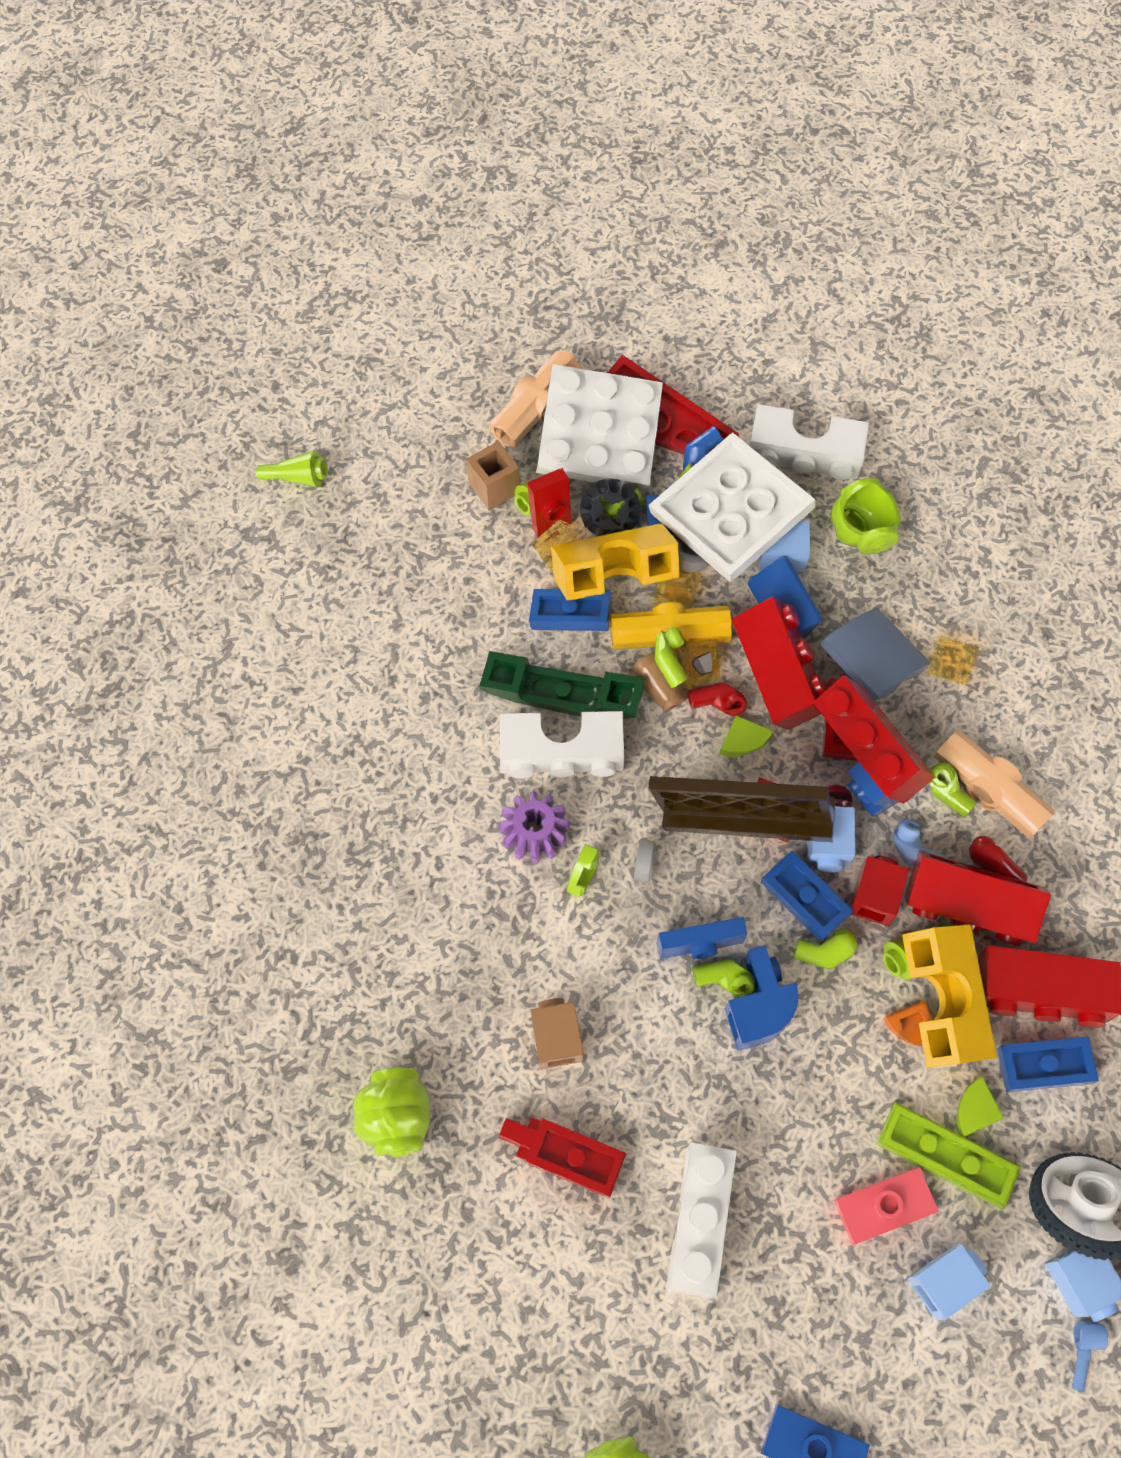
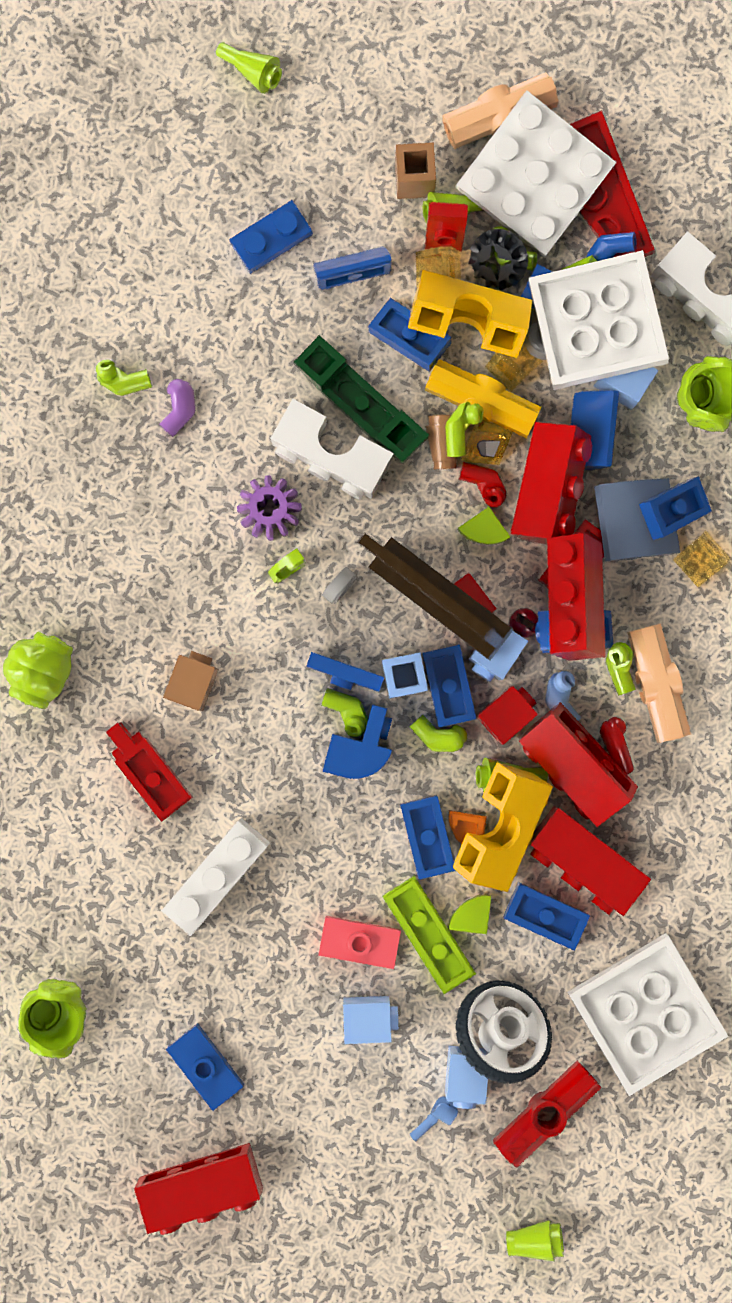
camera: 30 degrees right, 20 degrees up
(320, 793) = (120, 382): none -> lime arm
(393, 596) = (271, 236): none -> blue plate
(396, 781) = (182, 406): none -> medium lavender arm
(485, 583) = (352, 268): none -> blue slope
(761, 905) = (404, 675): none -> light blue brick
(883, 1054) = (427, 837): none -> blue plate
(902, 623) = (675, 508): none -> blue plate

